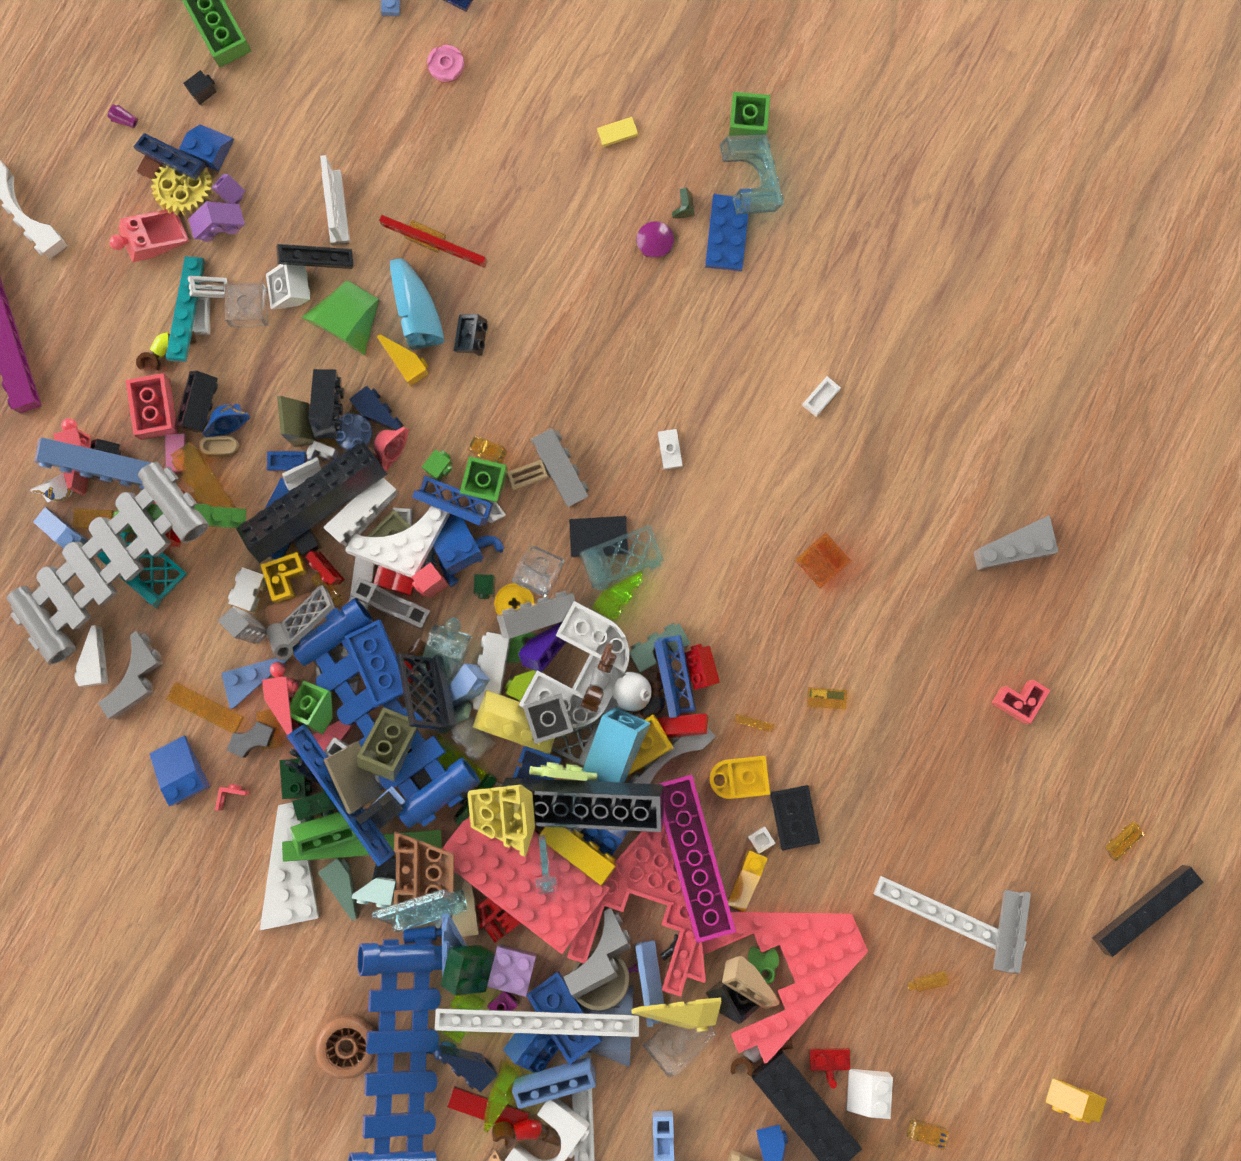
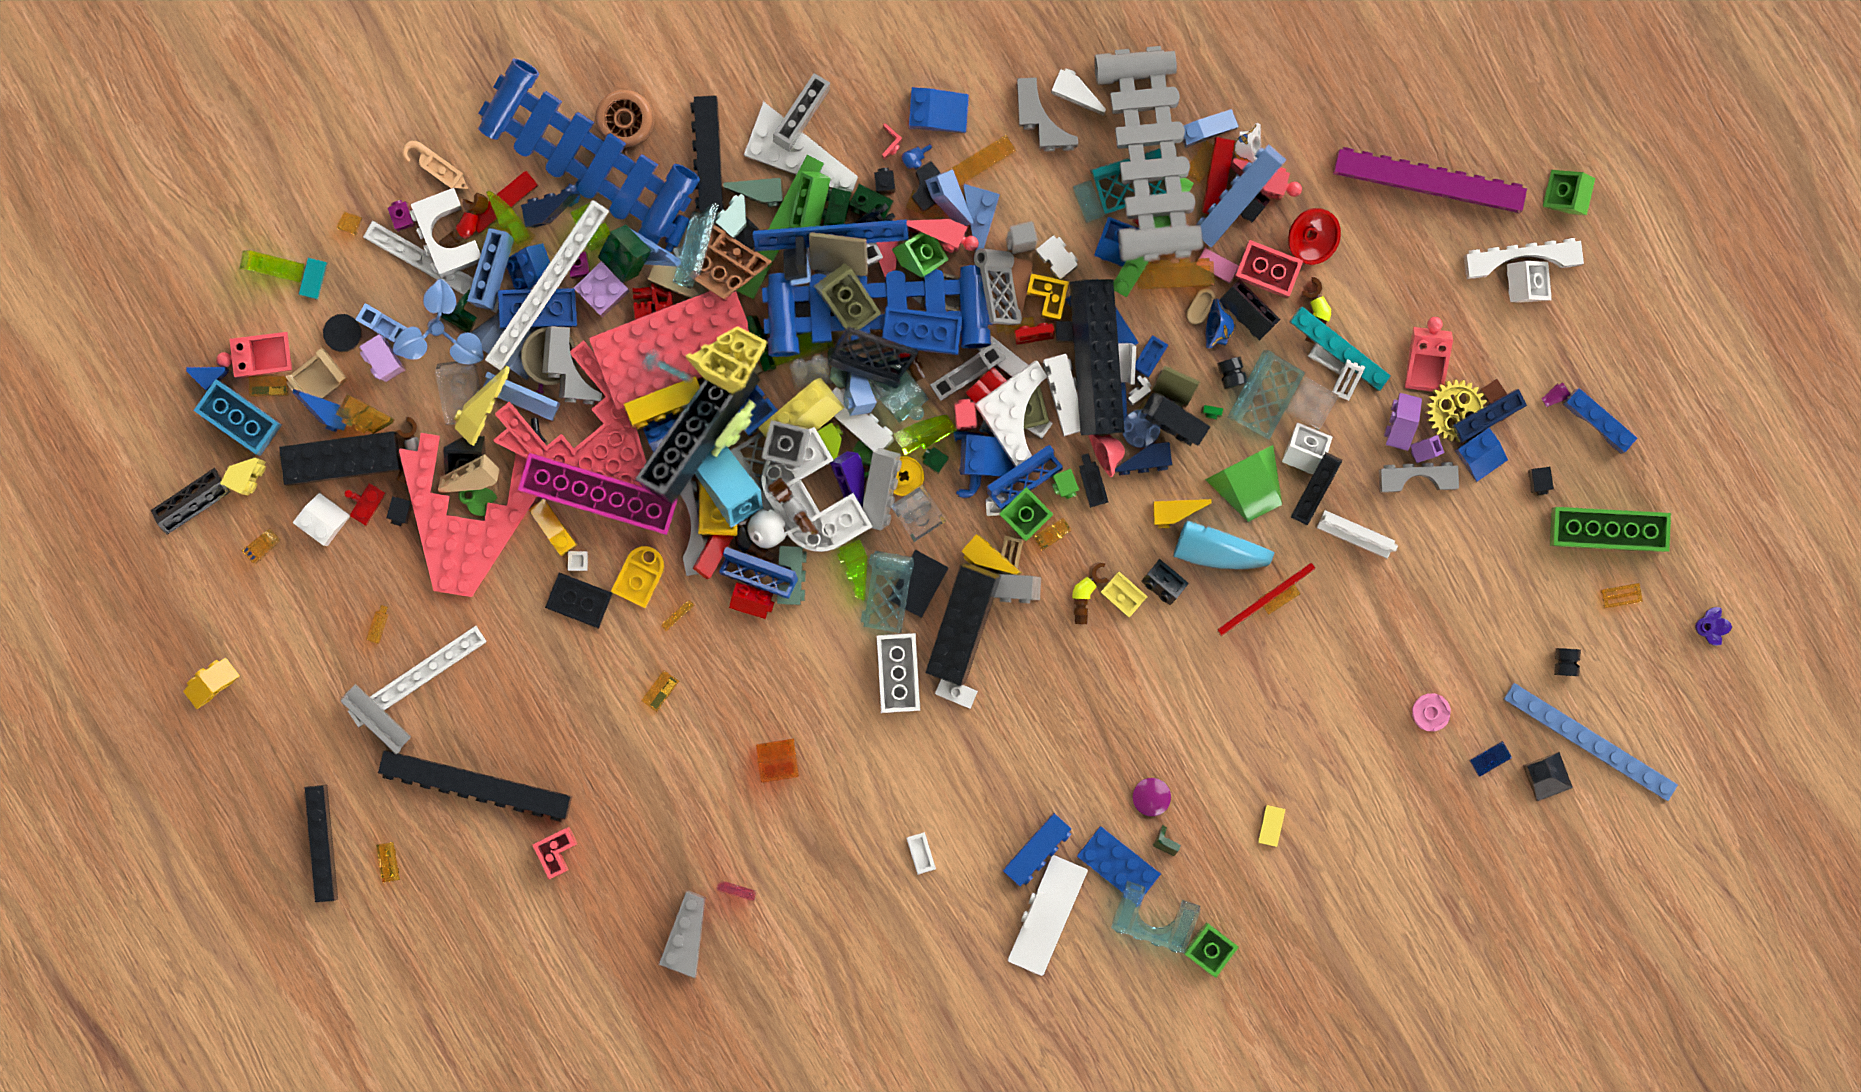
camera: 120 degrees right, 5 degrees up
(39, 193) = (1528, 281): none -> white slope
(92, 499) = (1218, 172): none -> red tile
(100, 385) = (1321, 241): none -> red dish
(125, 50) = (1611, 429): none -> blue arch
(183, 594) = (1088, 201): none -> clear light blue plate
(206, 549) = (1109, 243): none -> blue slope
(233, 767) = (913, 157): none -> blue piece
(247, 714) = (948, 195): none -> medium blue slope
(248, 890) = (801, 112): none -> light grey brick
(258, 361) = (1254, 383): none -> clear light blue fence
(259, 384) = (1232, 372): none -> black wheel
(267, 778) = (884, 181): none -> black brick
(269, 199) = (1443, 477): none -> light grey arch
(303, 381) = (1212, 412): none -> green plate
(332, 952) = (708, 152): none -> black brick
(422, 444) = (1092, 482): none -> black hinge
(467, 609) = (924, 433): none -> clear neon green slope
(501, 361) = (1124, 594): none -> light yellow plate
(518, 396) = (1082, 593): none -> piece
(539, 493) = (984, 554): none -> yellow slope
(609, 474) = (963, 624): none -> black brick
(613, 1087) = (461, 317): none -> dark green plate
(665, 1113) = (411, 342): none -> medium blue plant
(684, 504) = (898, 673): none -> white brick
(694, 1132) = (381, 357): none -> lavender brick
(756, 1116) = (362, 415): none -> clear yellow slope
(757, 303) = (1035, 851): none -> blue brick
(805, 263) = (1047, 915): none -> white bracket
(818, 1027) = (399, 511): none -> black brick
(953, 525) = (737, 890): none -> clear pink tile
(1010, 808) = (474, 784): none -> black brick

